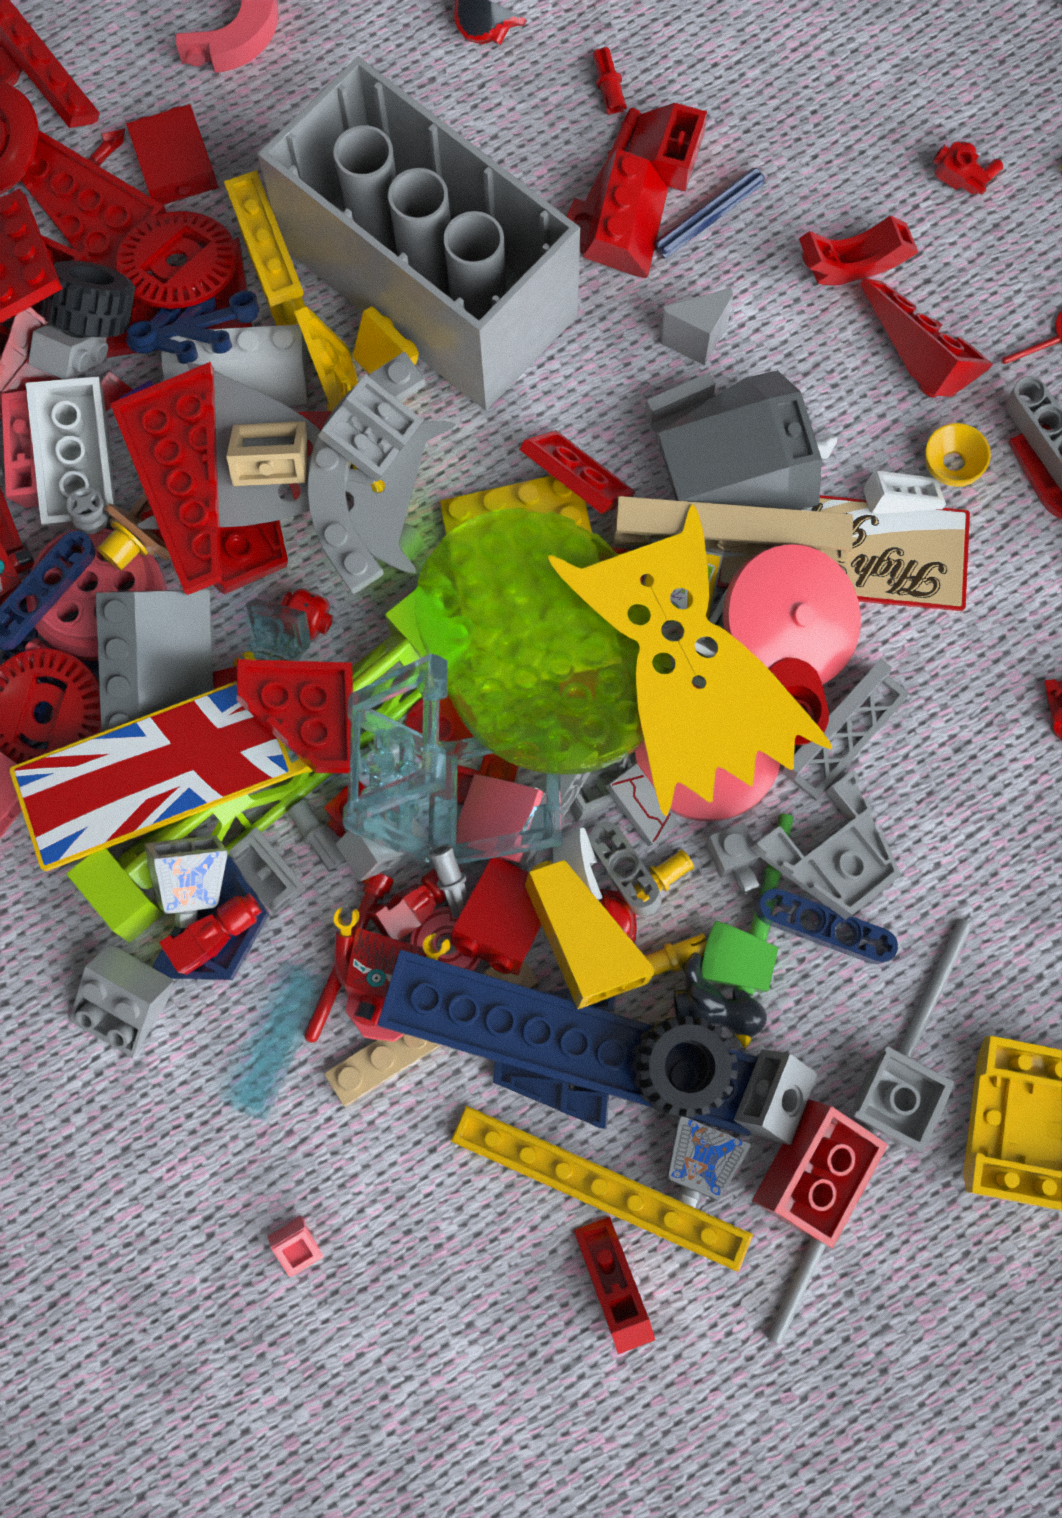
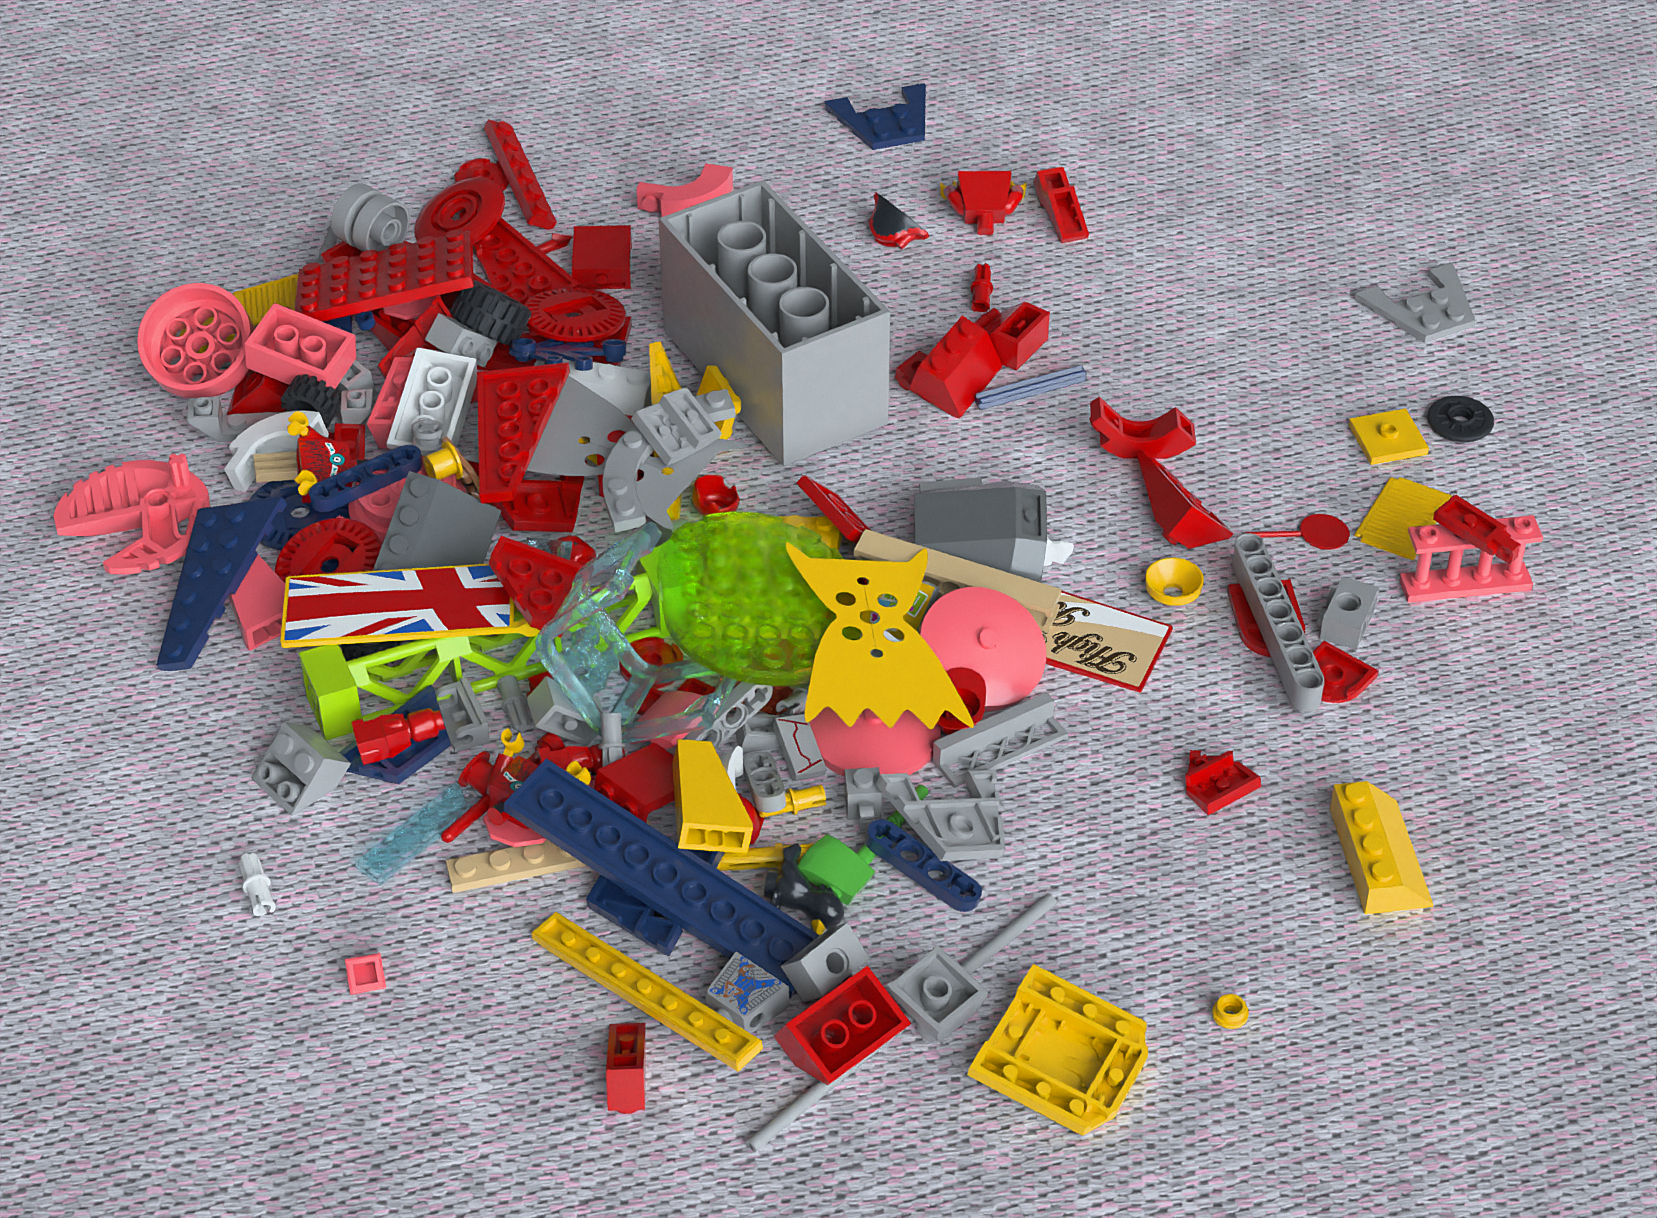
camera: 15 degrees right, 30 degrees down
(133, 1168) = (256, 884): none -> white axle
(186, 875) = (394, 680): light grey torso -> none
(266, 247) = (646, 308): yellow fence -> none
(268, 463) = (587, 429): tan tile -> none
(319, 950) = (477, 773): none -> red piece
(434, 471) = (711, 492): none -> red hair
(696, 324) = (984, 444): light grey slope -> none
(715, 1062) = (756, 881): black tyre -> none
(890, 493) = (1117, 597): white slope -> none
(959, 168) = (1257, 401): red piece -> none

